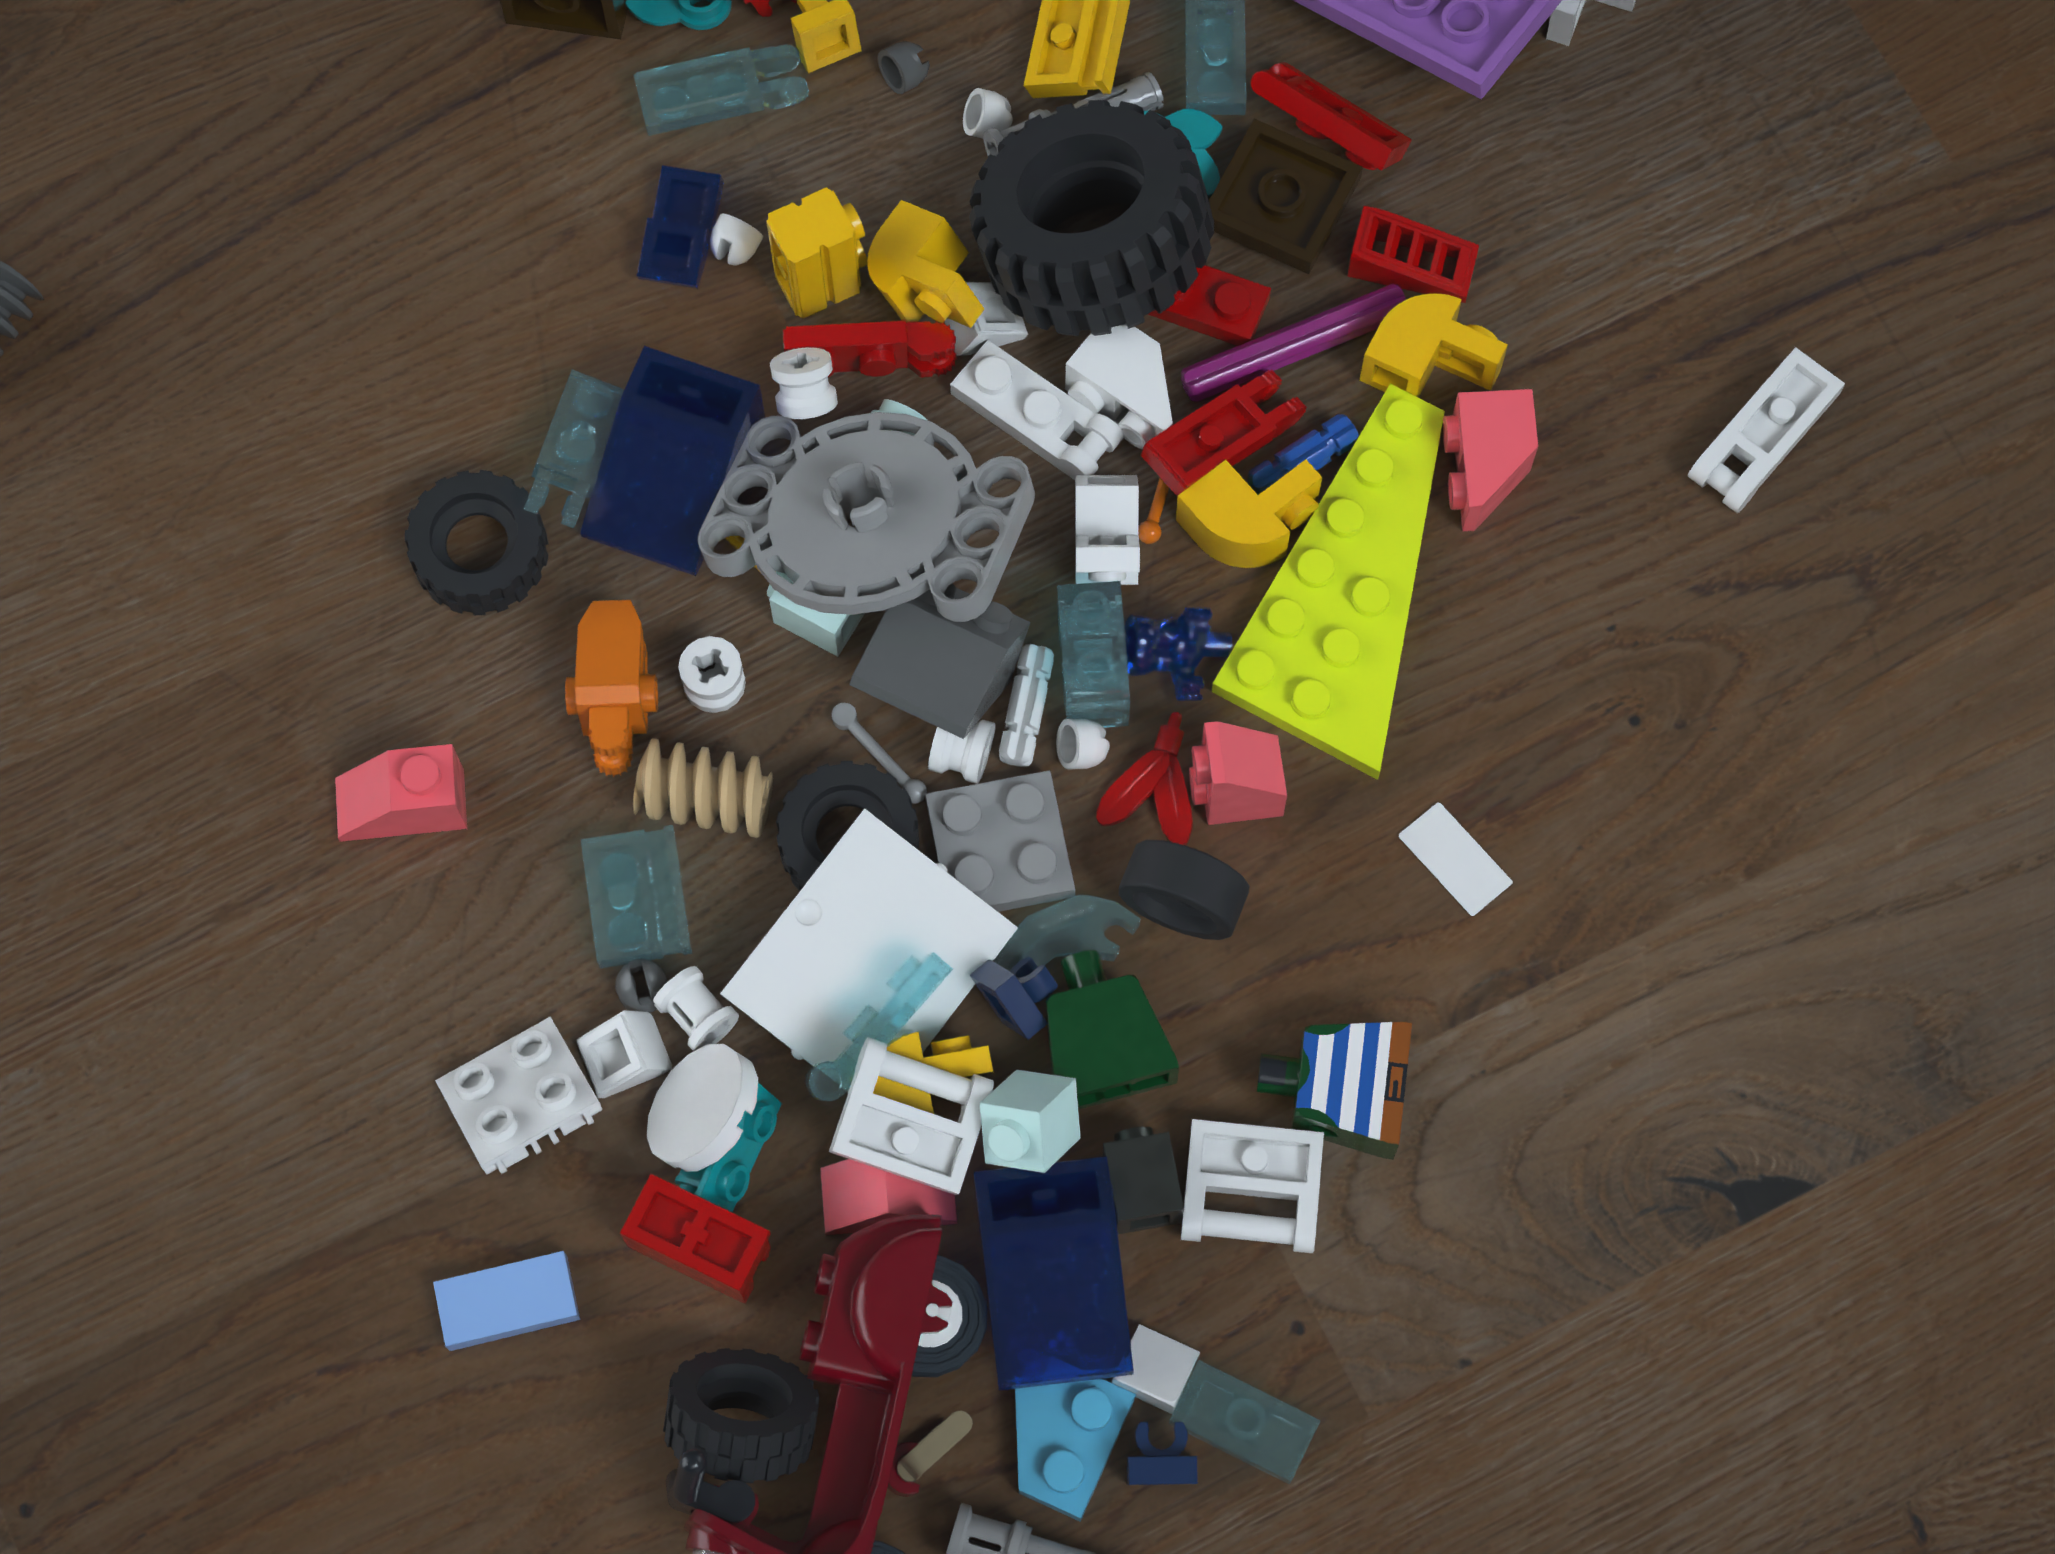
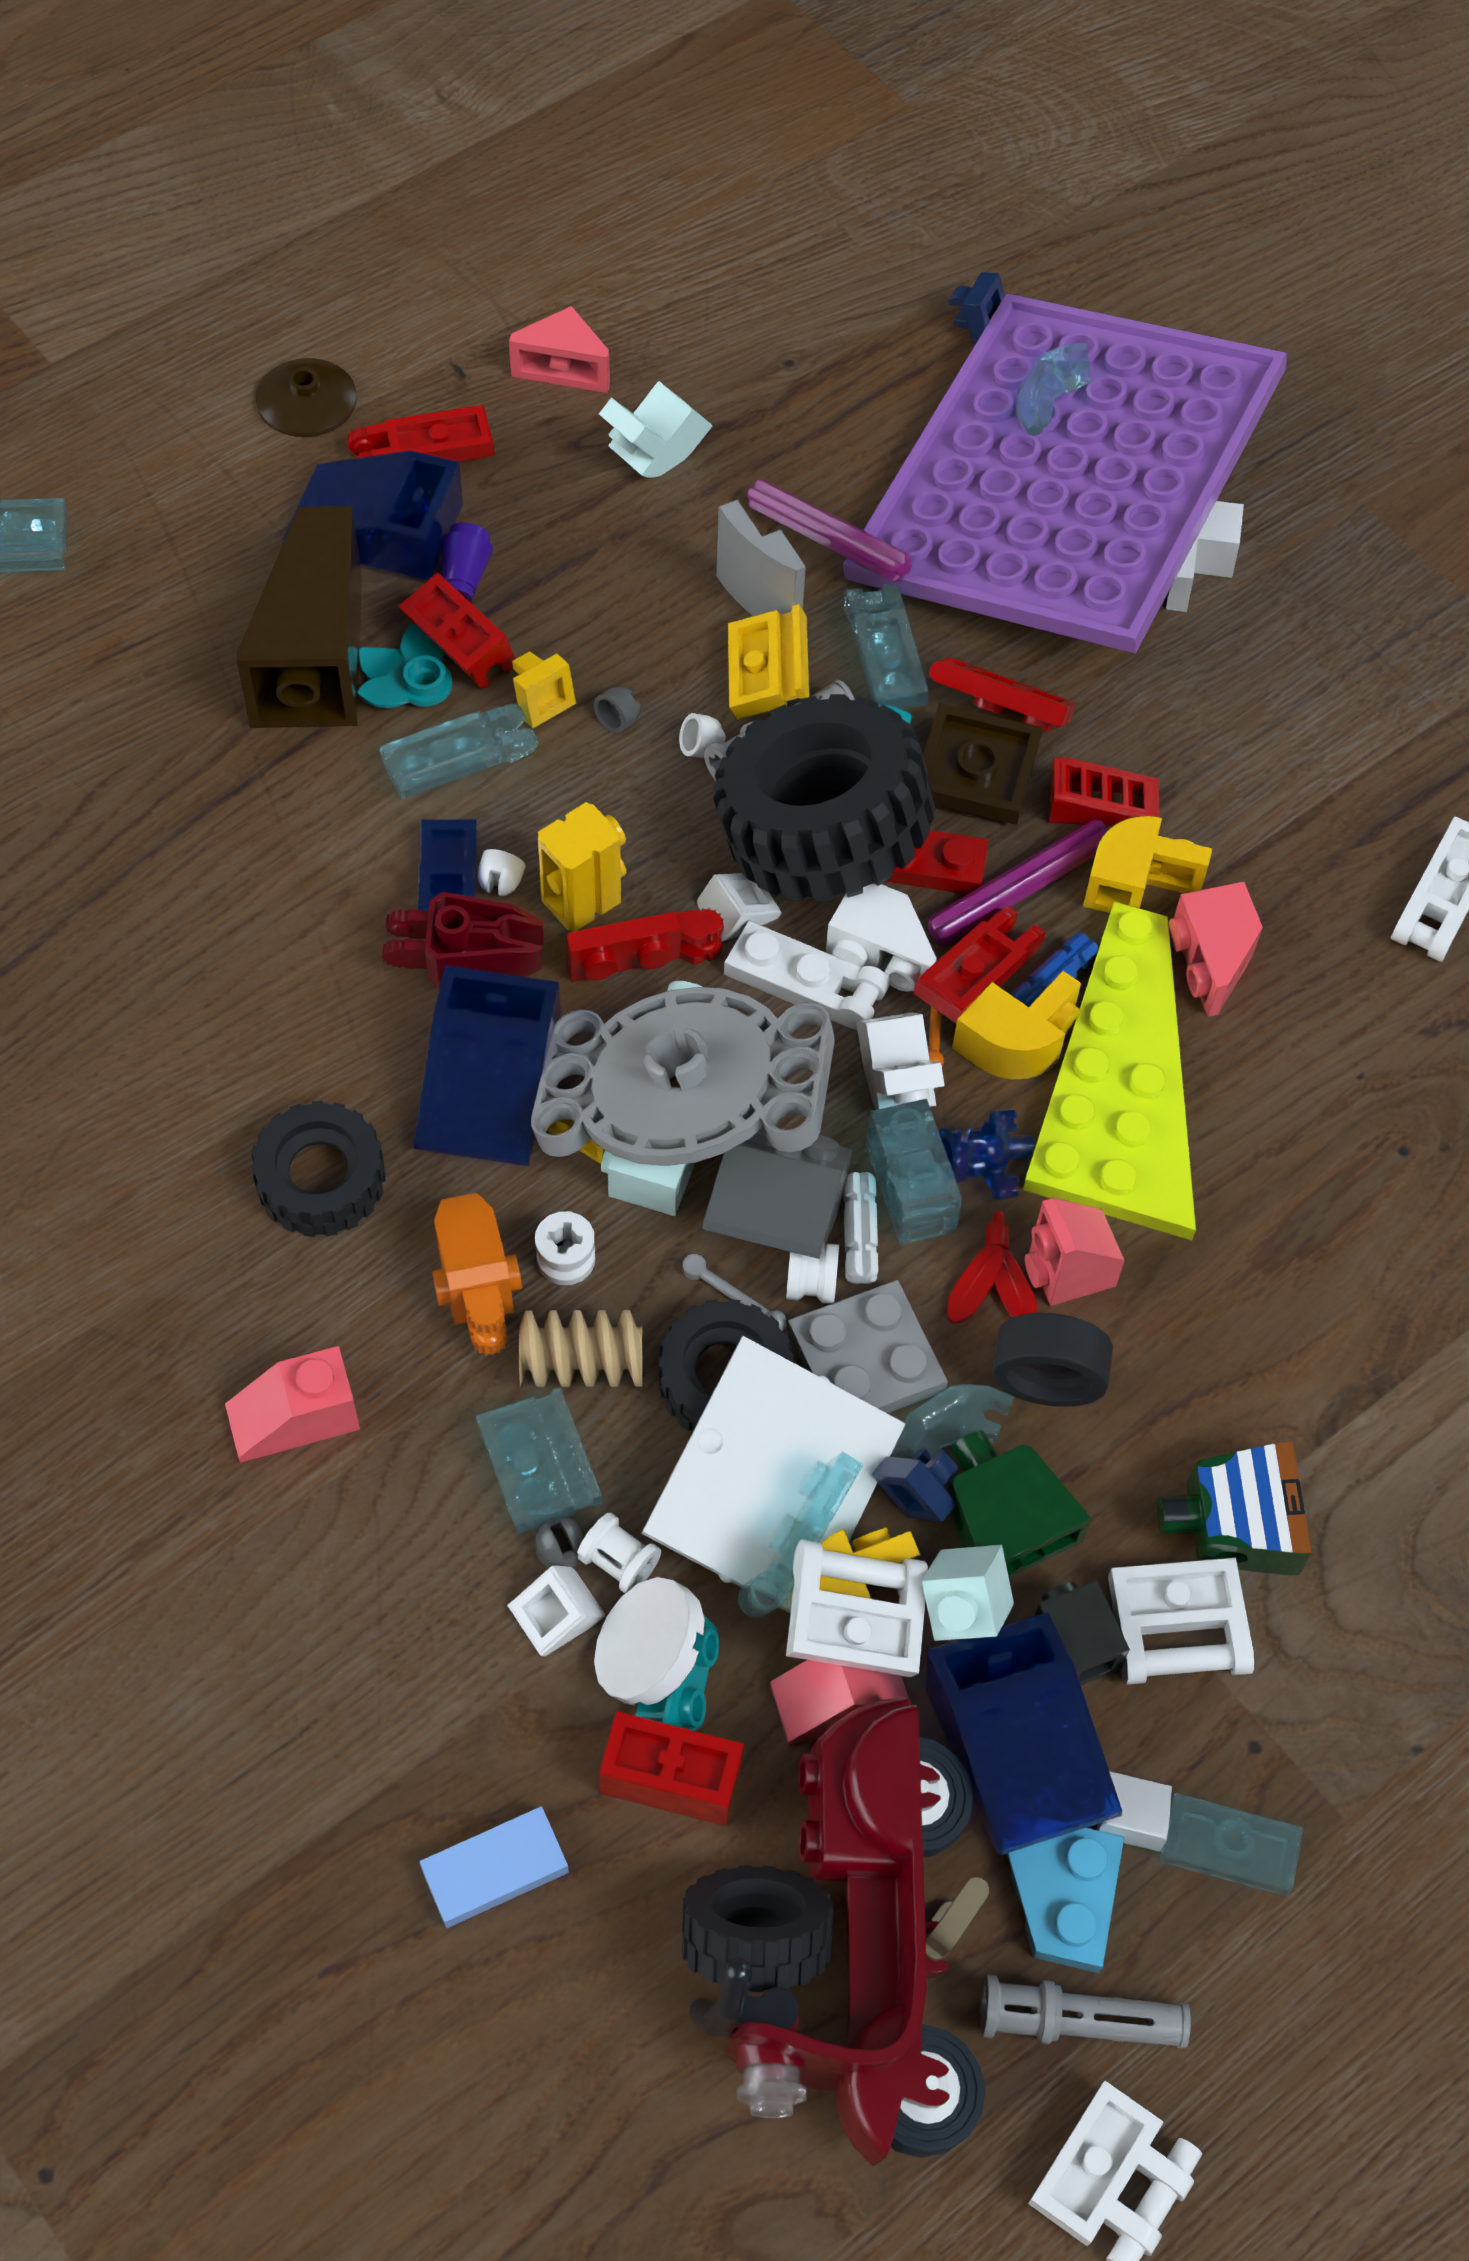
camera: 15 degrees left, 10 degrees down
(519, 1096) = (466, 1667): white hinge -> none
(575, 444) = (395, 1066): clear light blue hinge -> none
(679, 314) = (465, 935): none -> dark red hinge
(803, 383) = (596, 977): white wheel -> none
(916, 266) = (677, 866): yellow brick -> none
(1081, 743) = (919, 1252): white hinge -> none
(1161, 1465) = (1166, 1900): dark blue tile -> none
(1455, 859) = (1280, 1297): white sticker -> none

